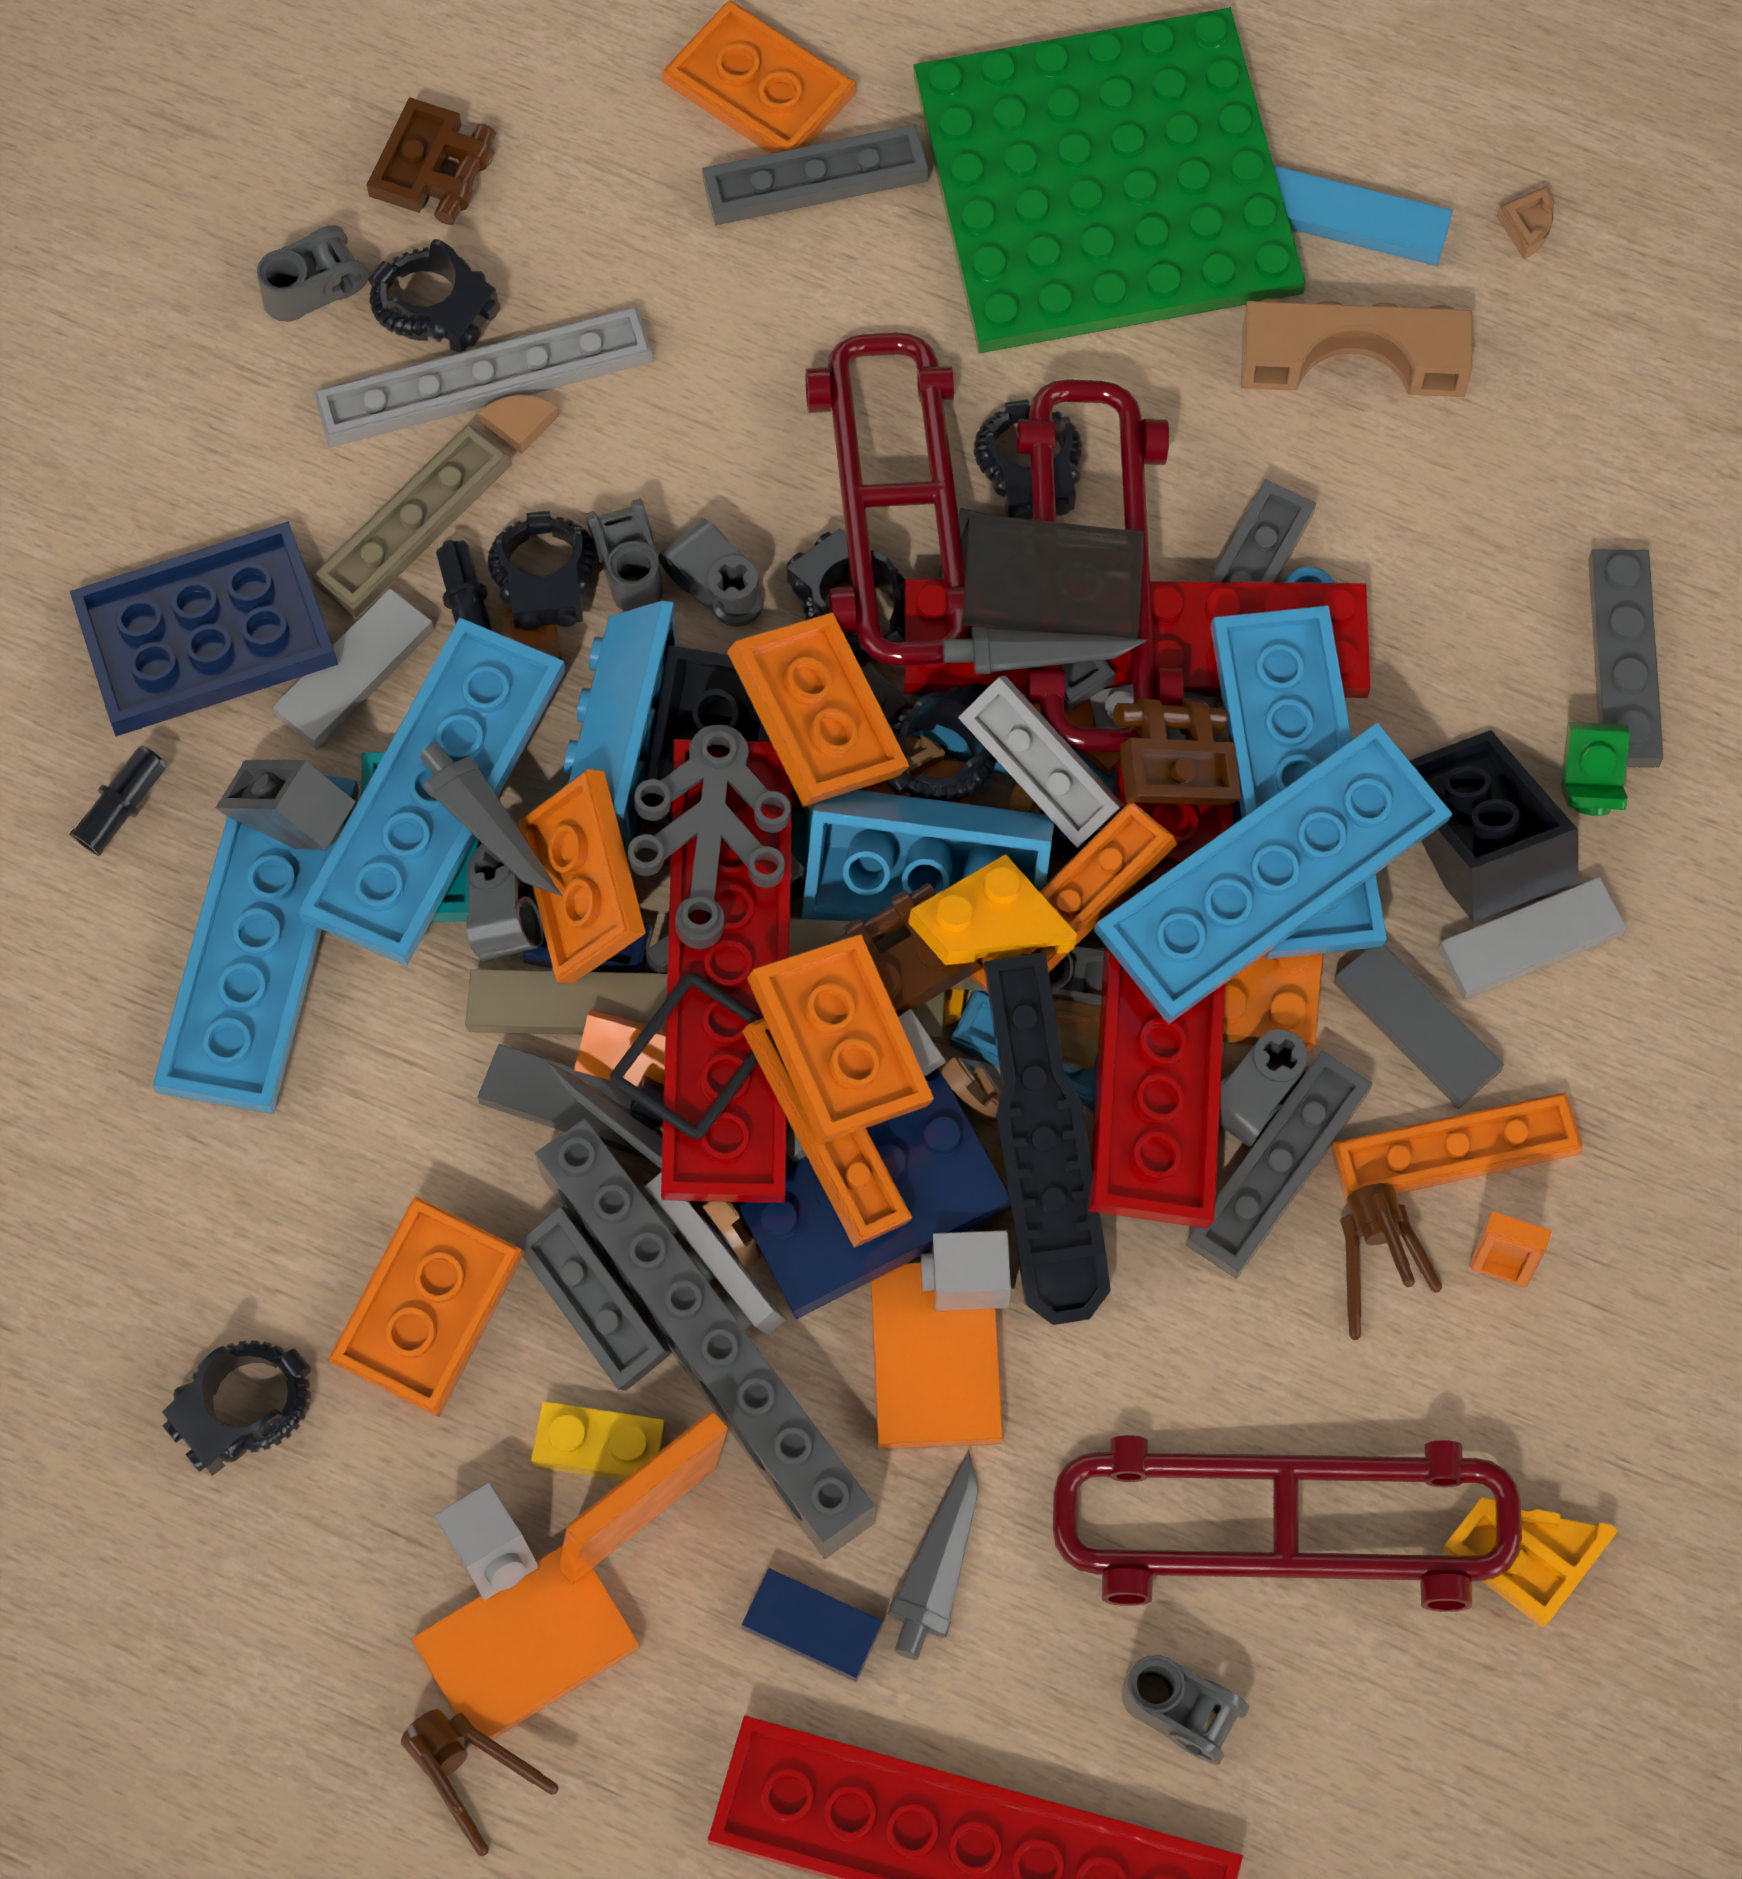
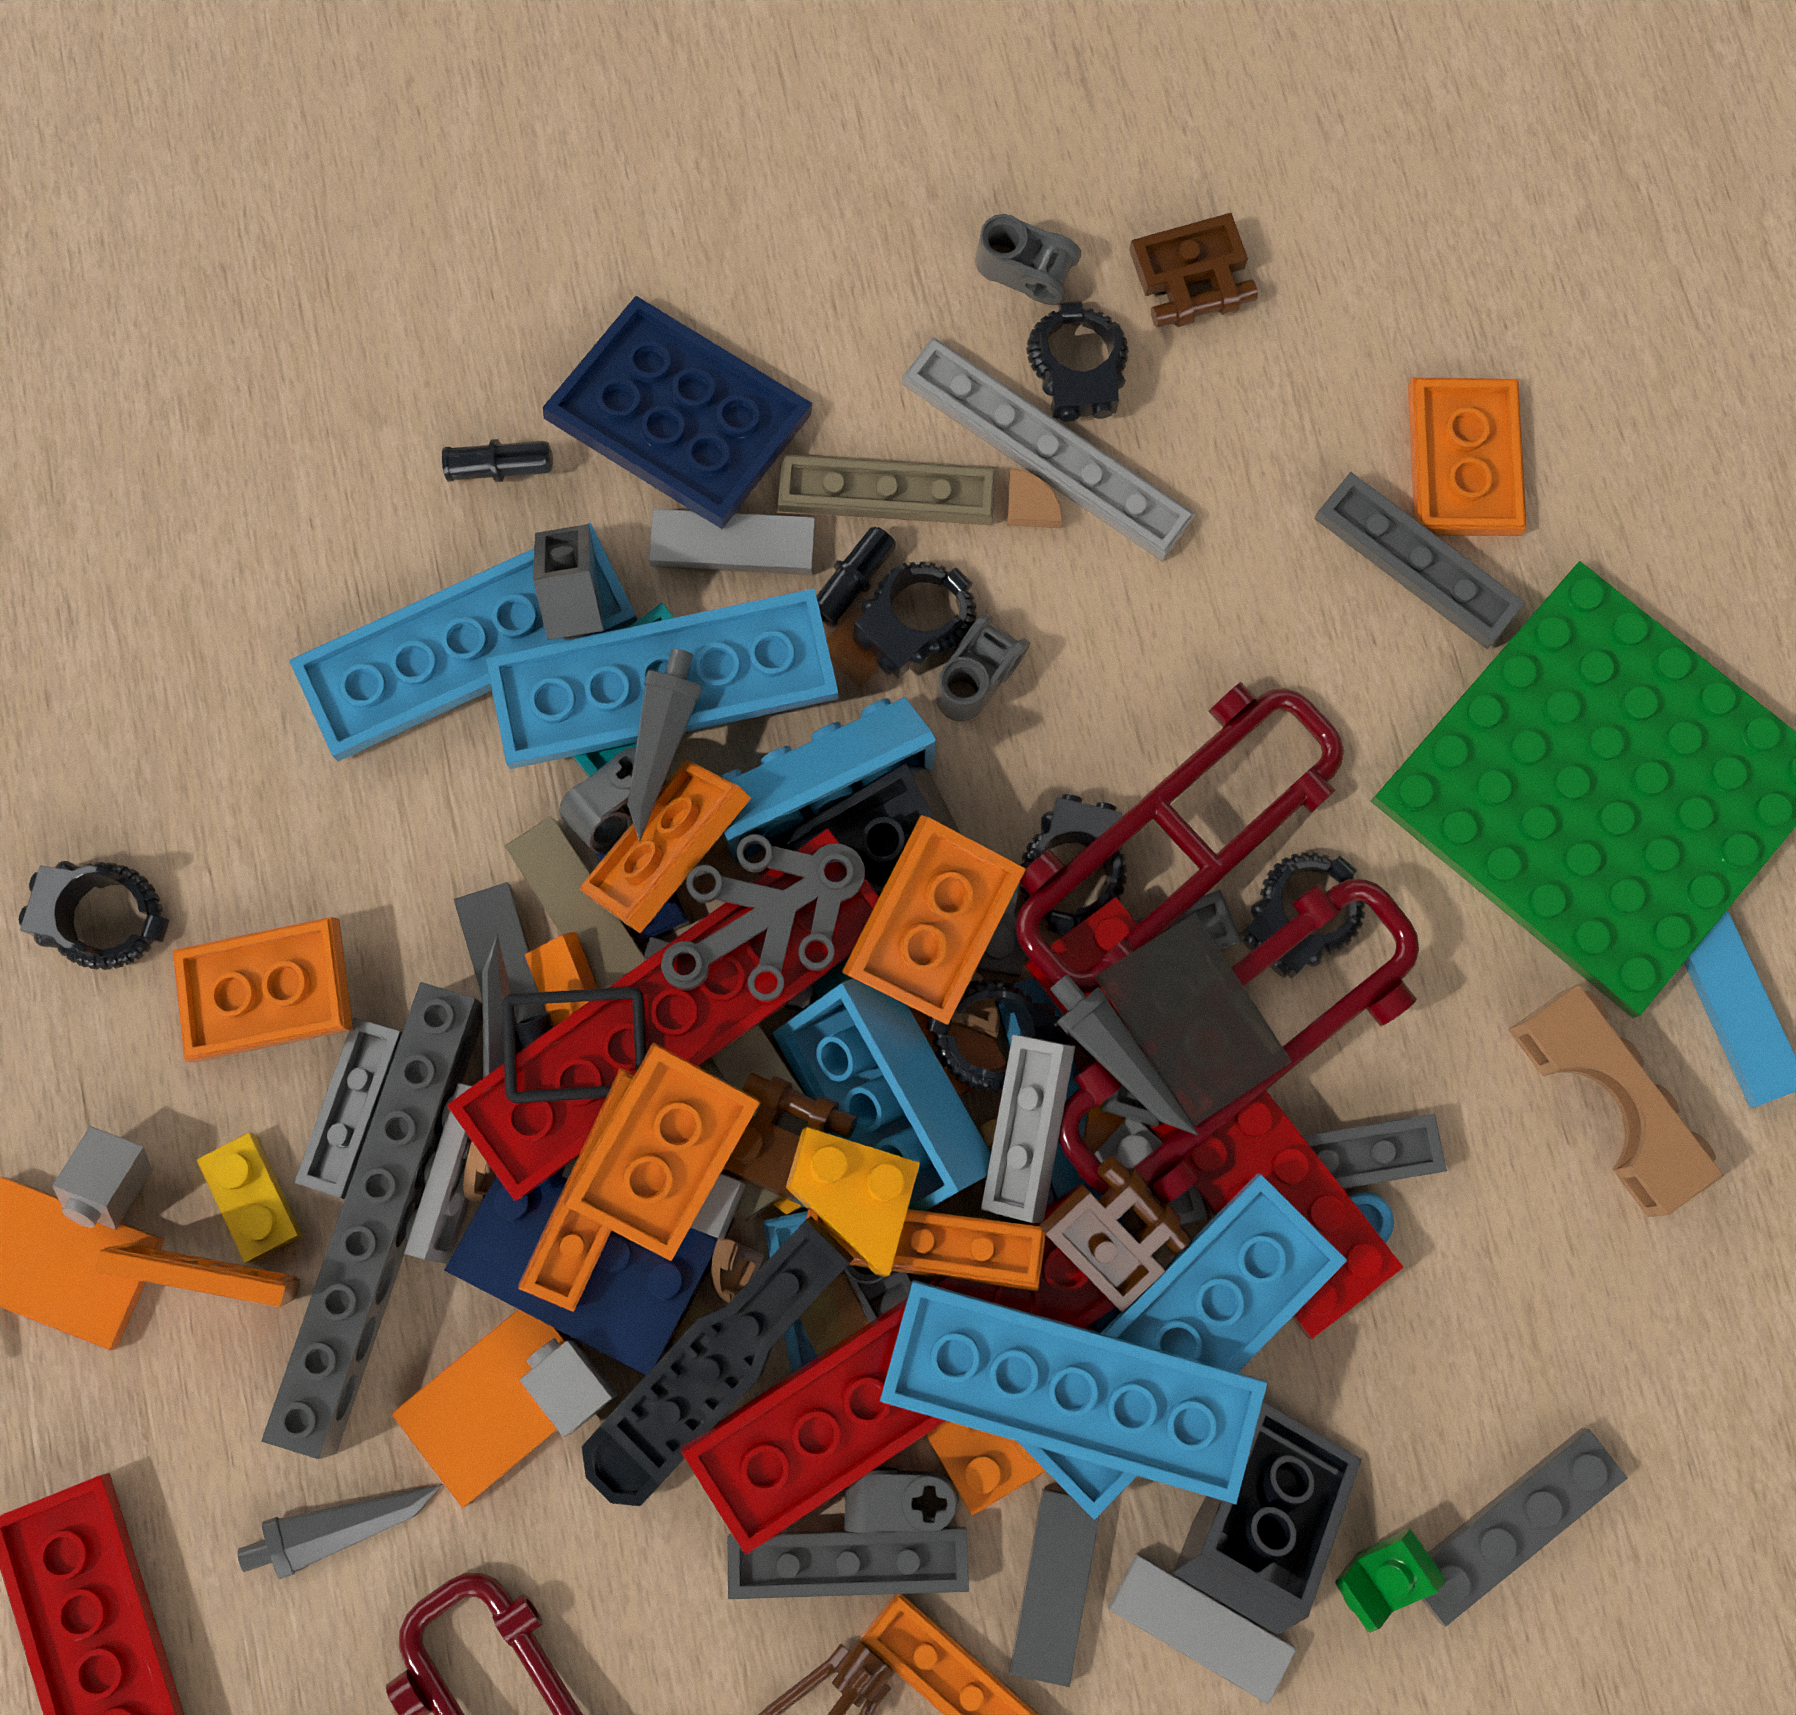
camera: 50 degrees right, 10 degrees up
(714, 573) = (1014, 740): dark grey piece -> none
(812, 1625) = (217, 1469): dark blue tile -> none

